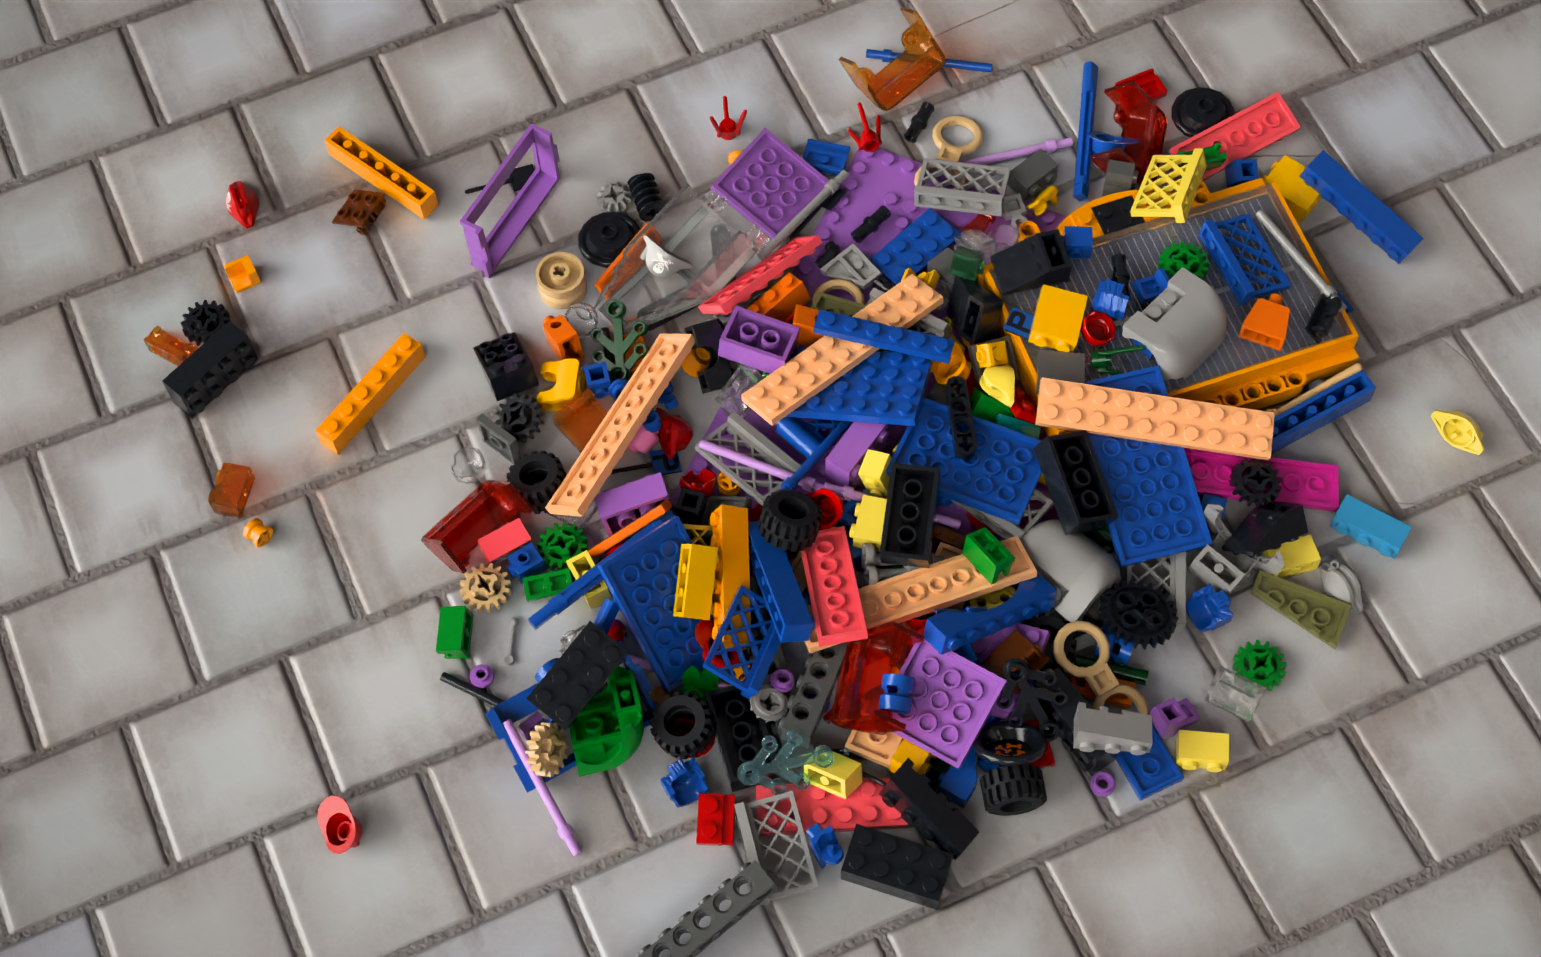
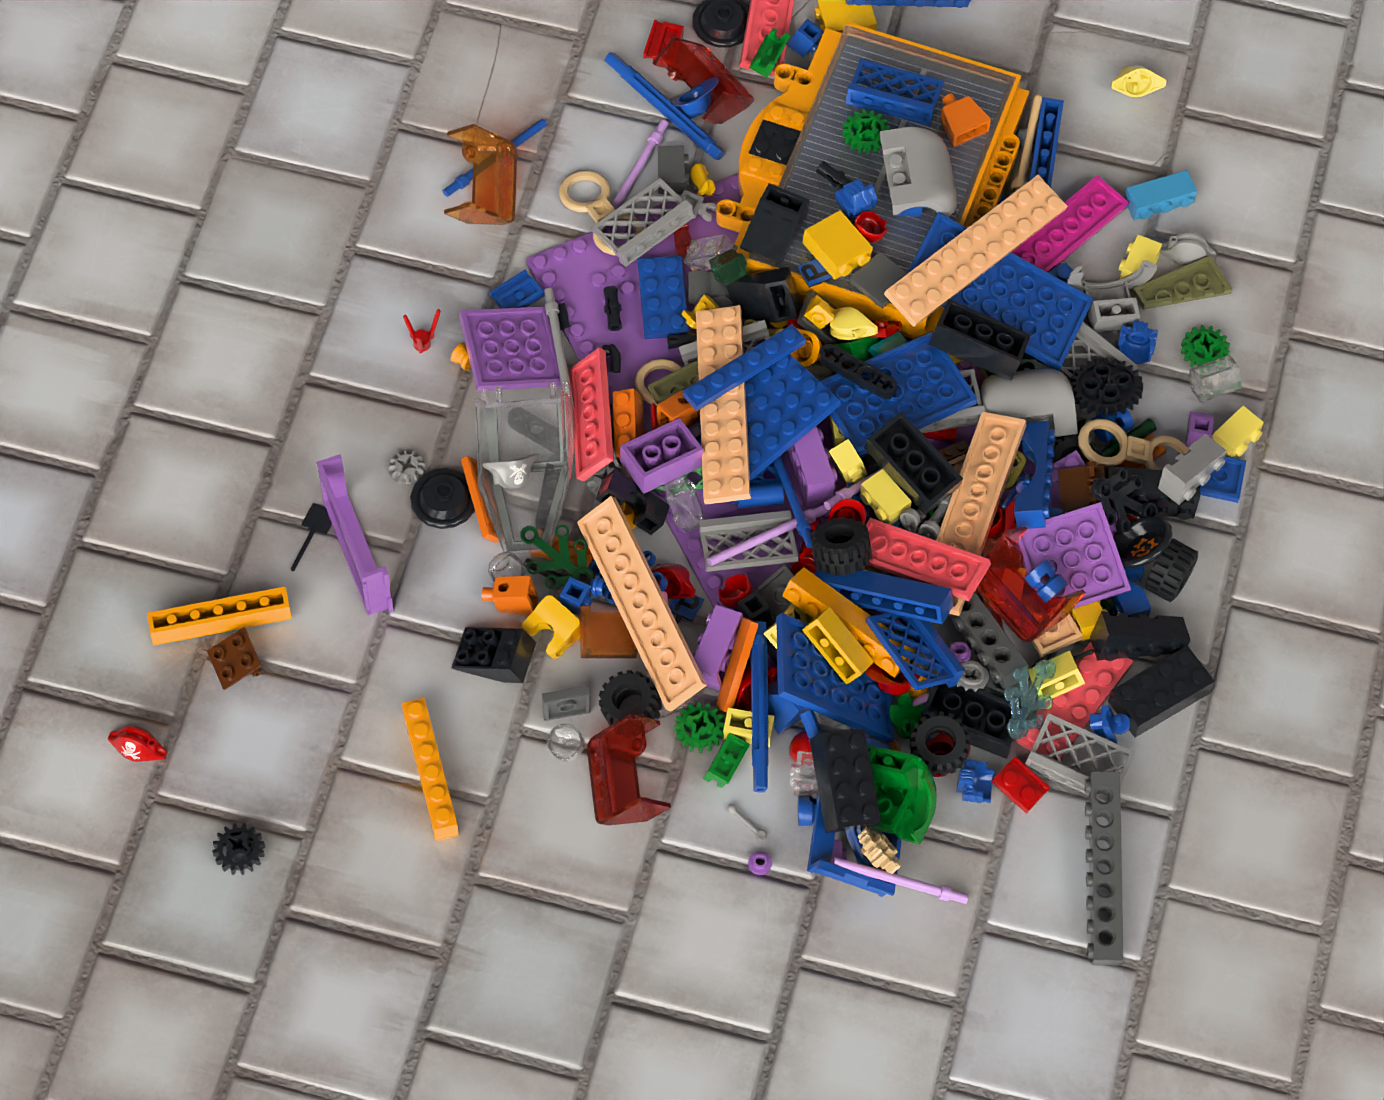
camera: 55 degrees left, 0 degrees up
(168, 346) = (237, 893): clear orange hinge -> none
(210, 369) = (298, 871): black brick -> none
(231, 489) = (423, 933): clear orange brick -> none
(242, 274) = (215, 789): light orange panel -> none
(258, 532) = (483, 939): light orange wheel -> none
(338, 825) = (804, 1047): piece -> none
(454, 632) = (706, 855): green hinge -> none
(470, 689) = (766, 878): black bar -> none
(477, 595) = (699, 808): tan gear -> none
(504, 540) = (657, 765): coral hinge -> none
(525, 563) = (691, 763): blue brick -> none
(530, 416) = (545, 678): black gear -> none
(561, 280) = (455, 557): tan wheel -> none
(646, 195) = (432, 442): black piece -> none
(732, 490) = (757, 578): light orange wheel -> none
(853, 267) = (641, 348): light grey wing -> none
(869, 139) = (533, 250): red plant -> none
(919, 122) = (546, 207): black pin -> none
(987, 554) = (987, 439): green hinge -> none
(1005, 237) = (716, 226): clear hair -> none
(1078, 241) = (785, 178): blue brick -> none
(1102, 358) = (895, 242): dark green plant -> none
(1102, 777) = (1207, 509): medium lavender plate -> none
(1119, 177) = (736, 118): dark grey brick -> none
(1152, 286) = (867, 164): blue bracket -> none
(1186, 187) = (794, 73): light yellow fence -> none
(1255, 482) = (1071, 233): black gear -> none
(1267, 529) = (1112, 256): black slope -> none
(1321, 318) = (995, 90): black hinge -> none
(1328, 290) = (971, 63): light grey bar -> none

